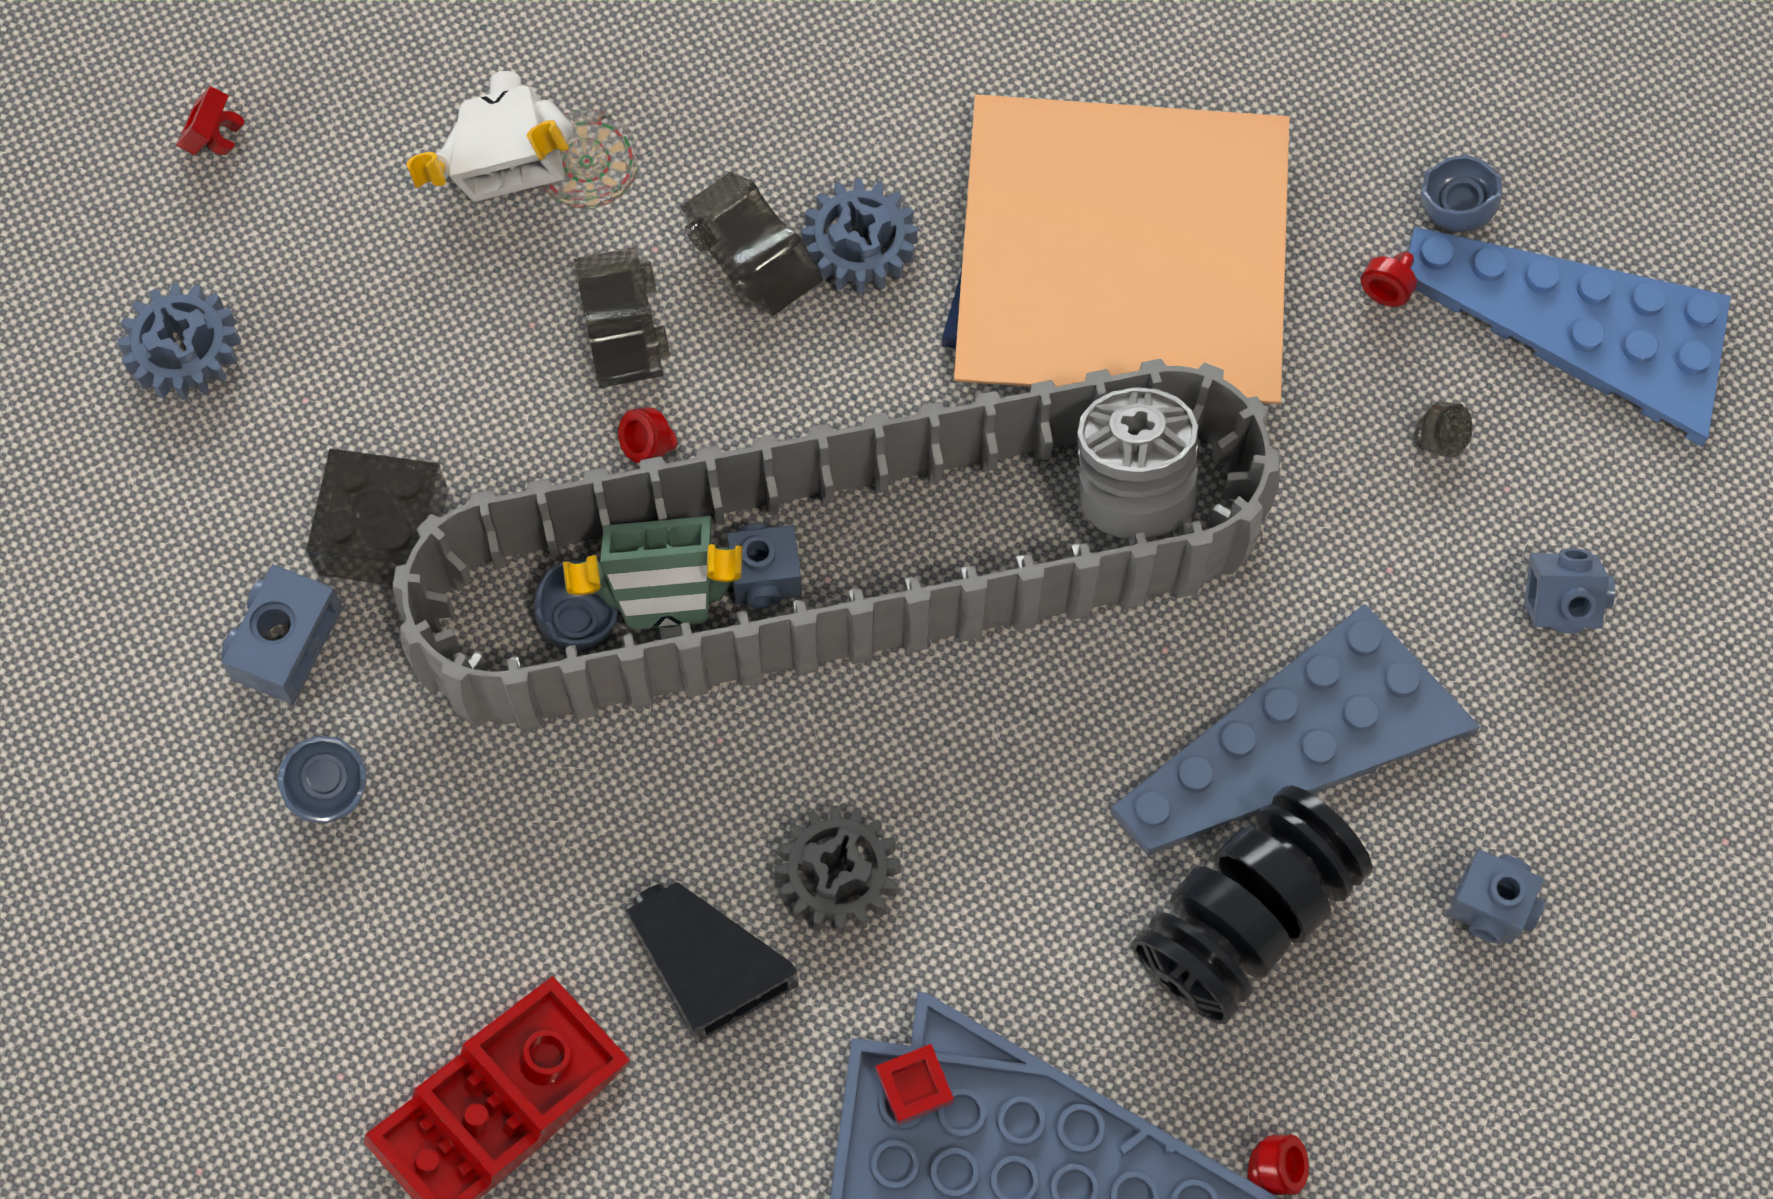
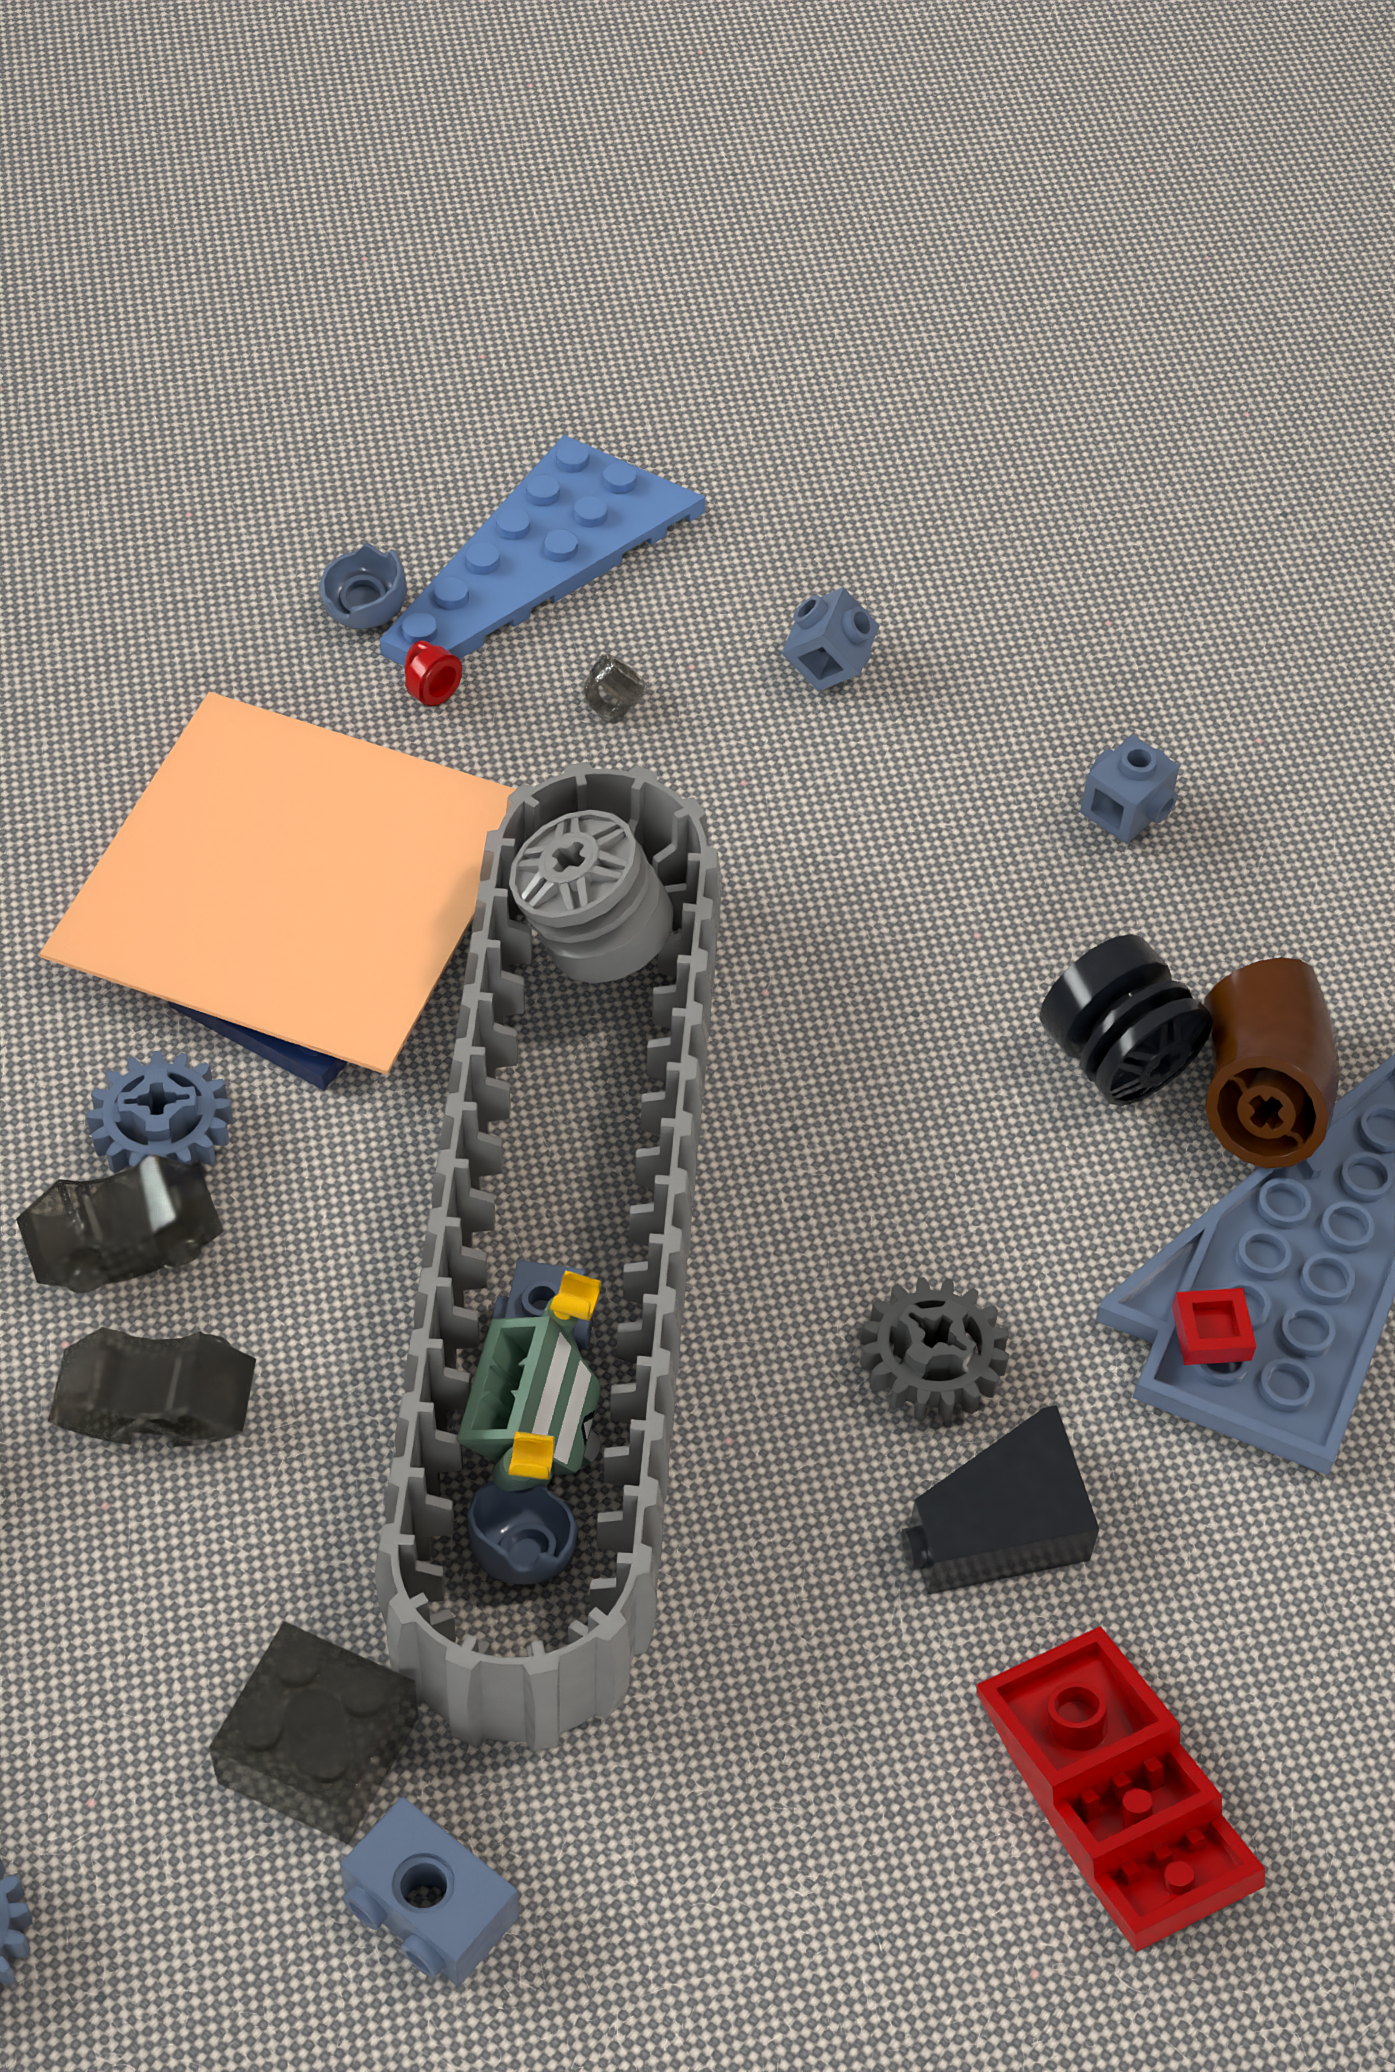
camera: 75 degrees left, 15 degrees down
(322, 779) = (653, 1884): sand blue hair -> none
(645, 434) = (320, 1405): red tile -> none
(1206, 1081) = (1271, 1063): none -> reddish brown brick
(1279, 1164) = (1362, 1043): red tile -> none
(1296, 860) = (1048, 915): black wheel -> none
(1314, 725) = (898, 891): sand blue wing -> none

